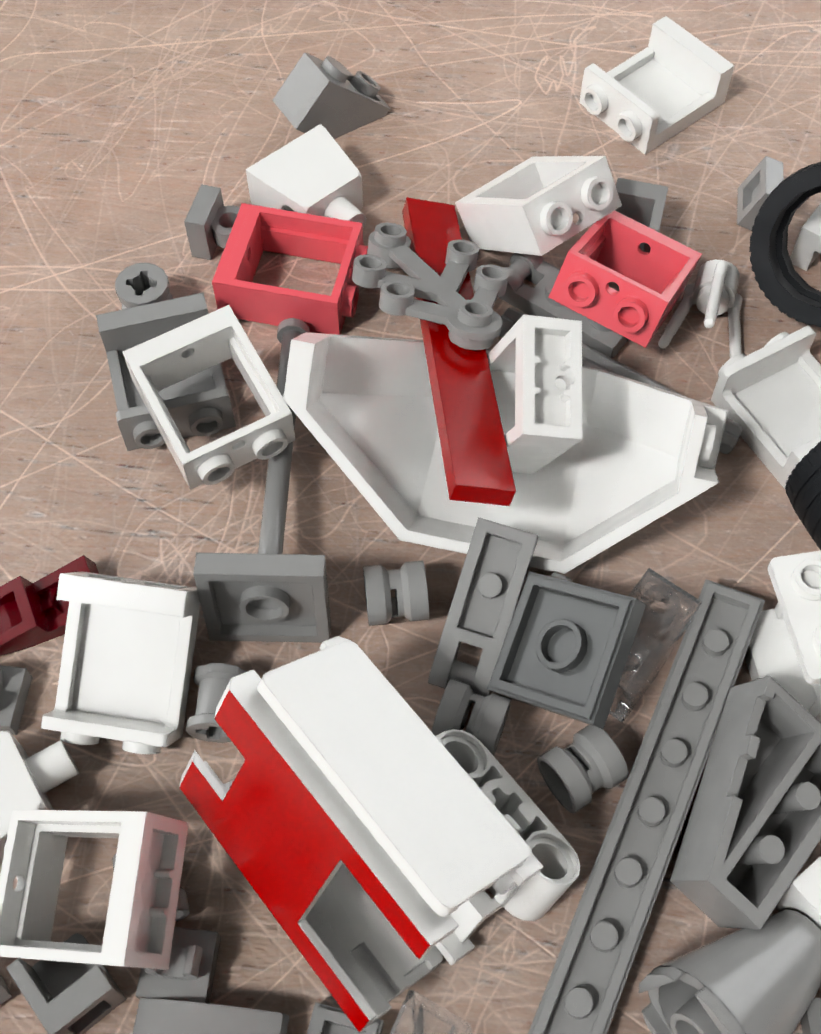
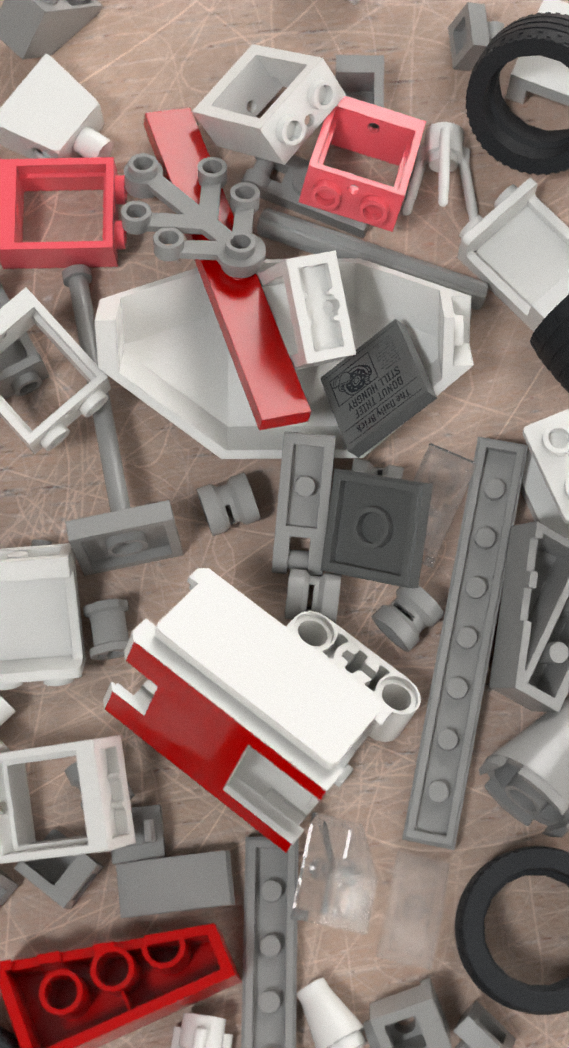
camera: 10 degrees left, 15 degrees up
(598, 498) = (377, 388): none -> dark grey tile

